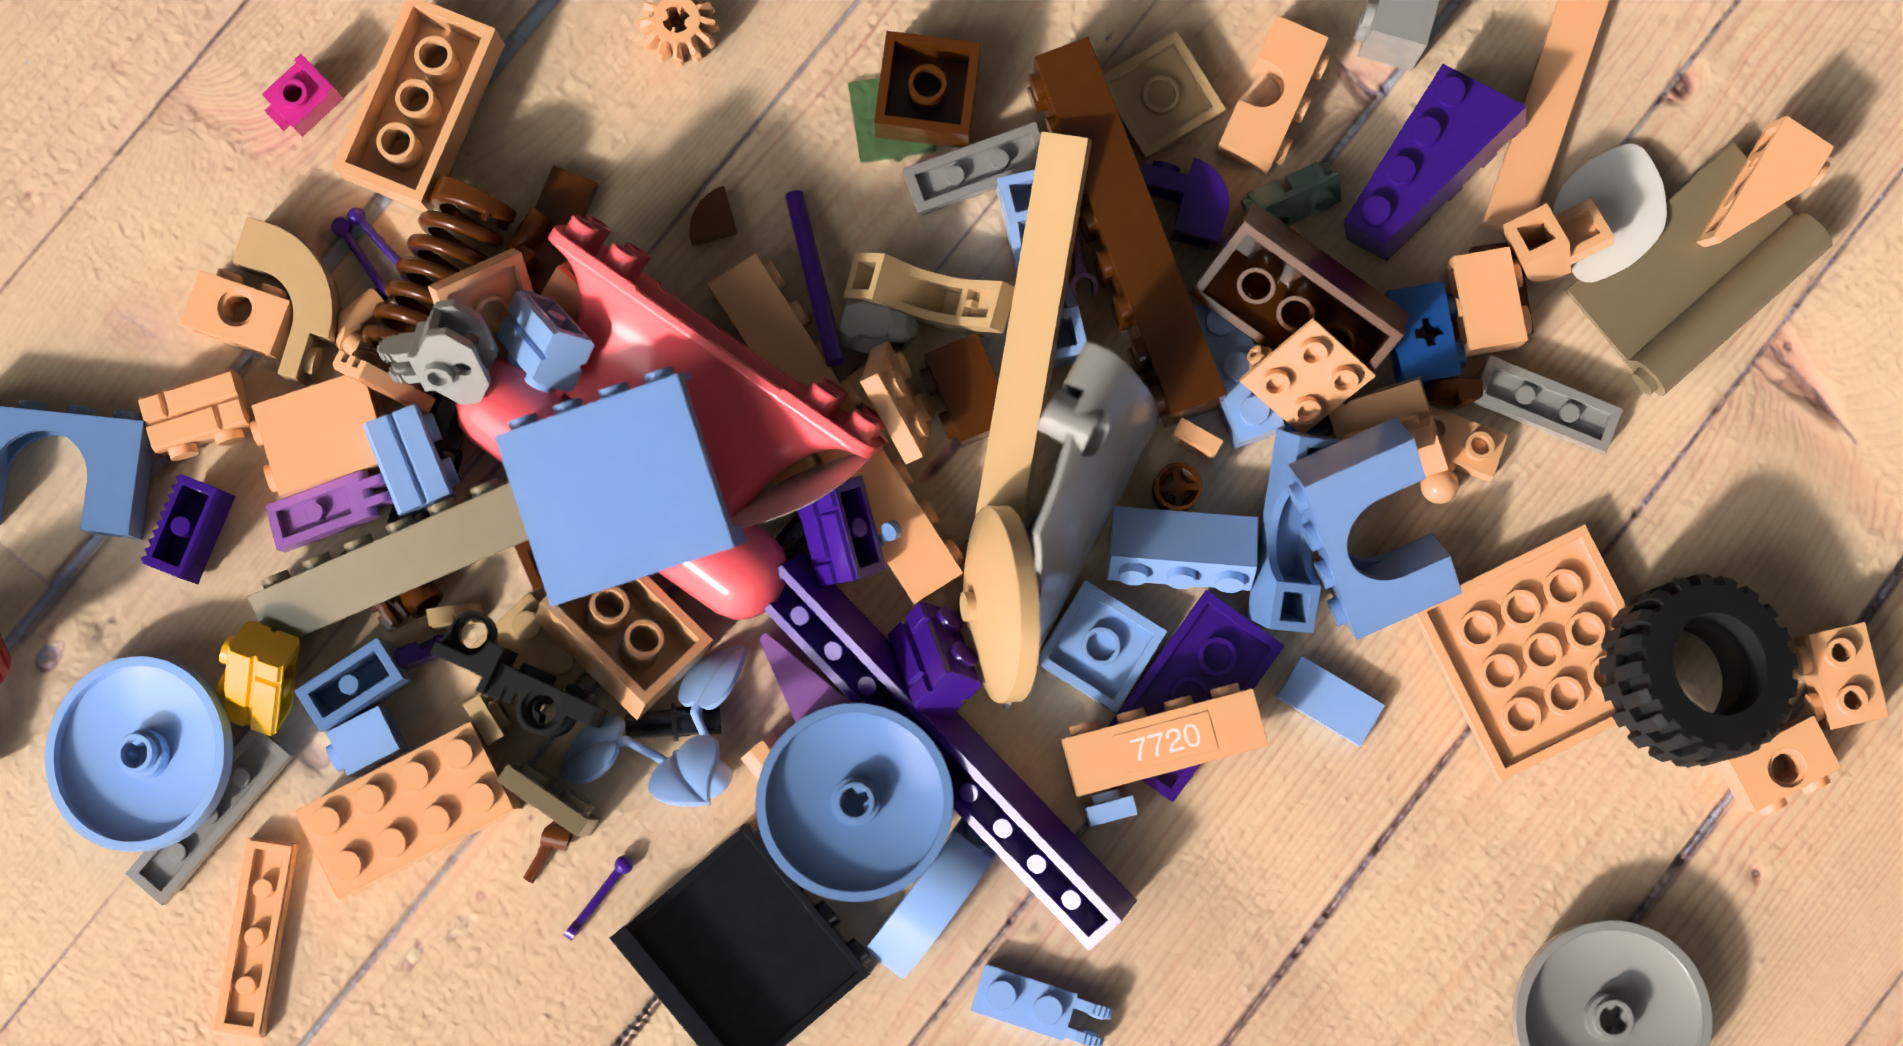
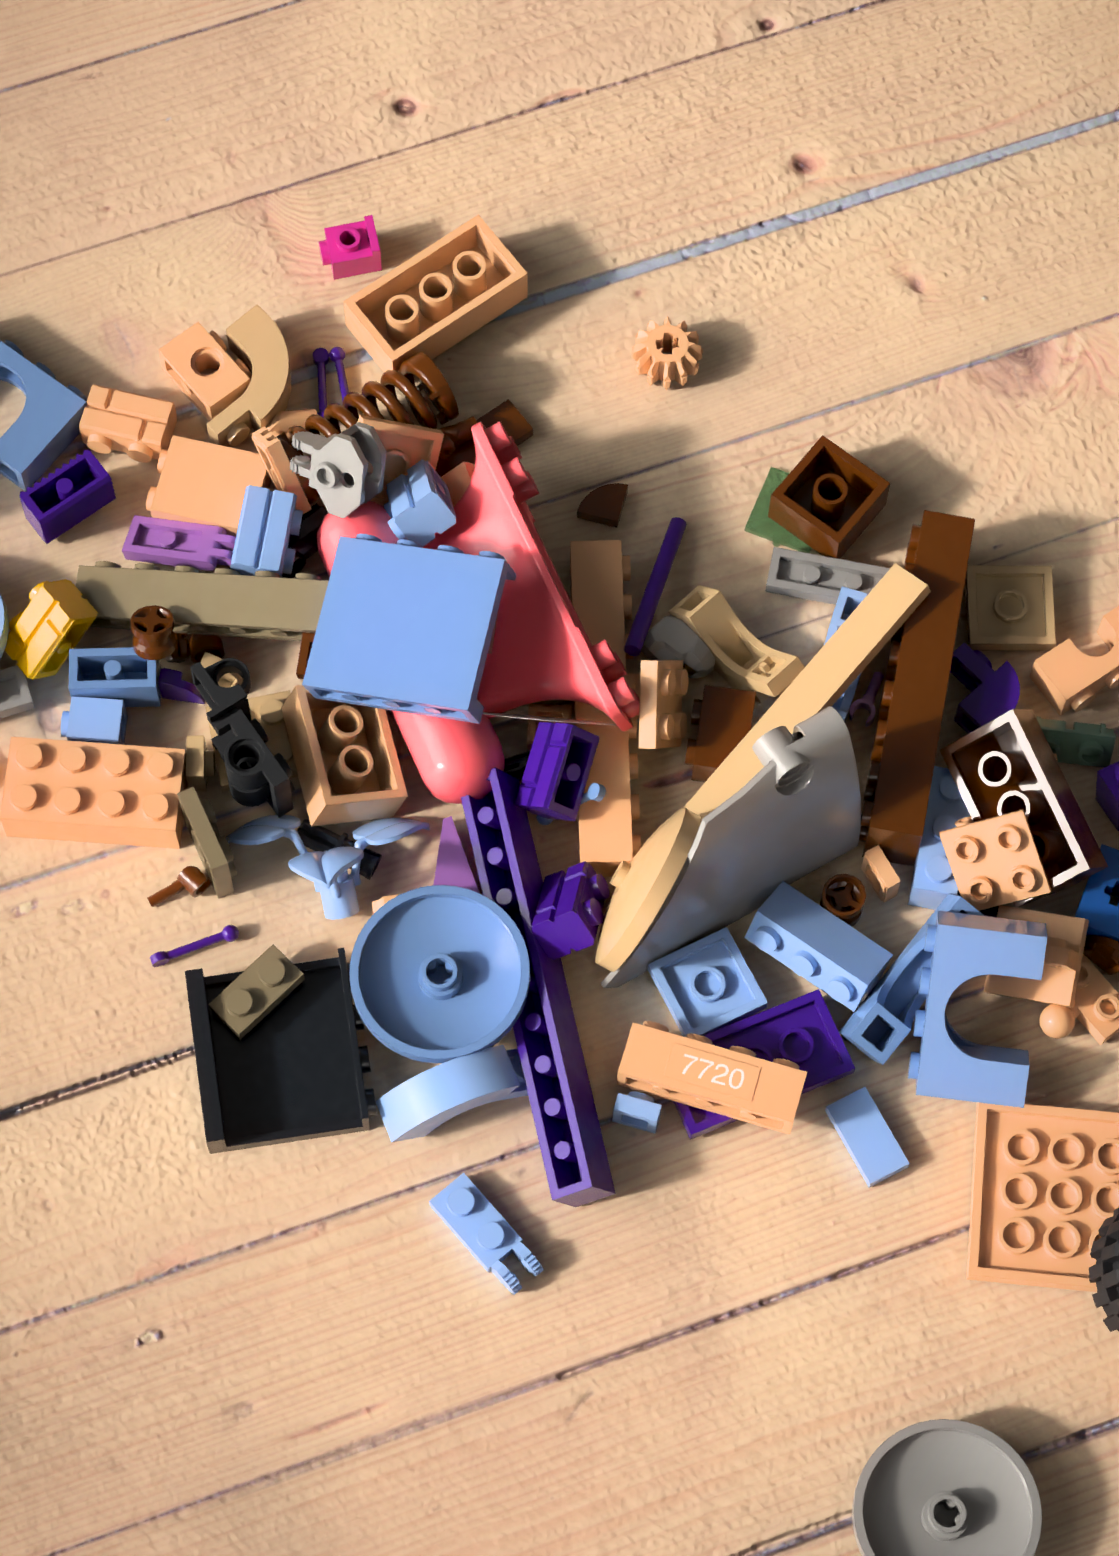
camera: 30 degrees right, 15 degrees down
(354, 627) = (153, 632): none -> reddish brown wheel
(687, 911) = (256, 991): none -> dark tan plate

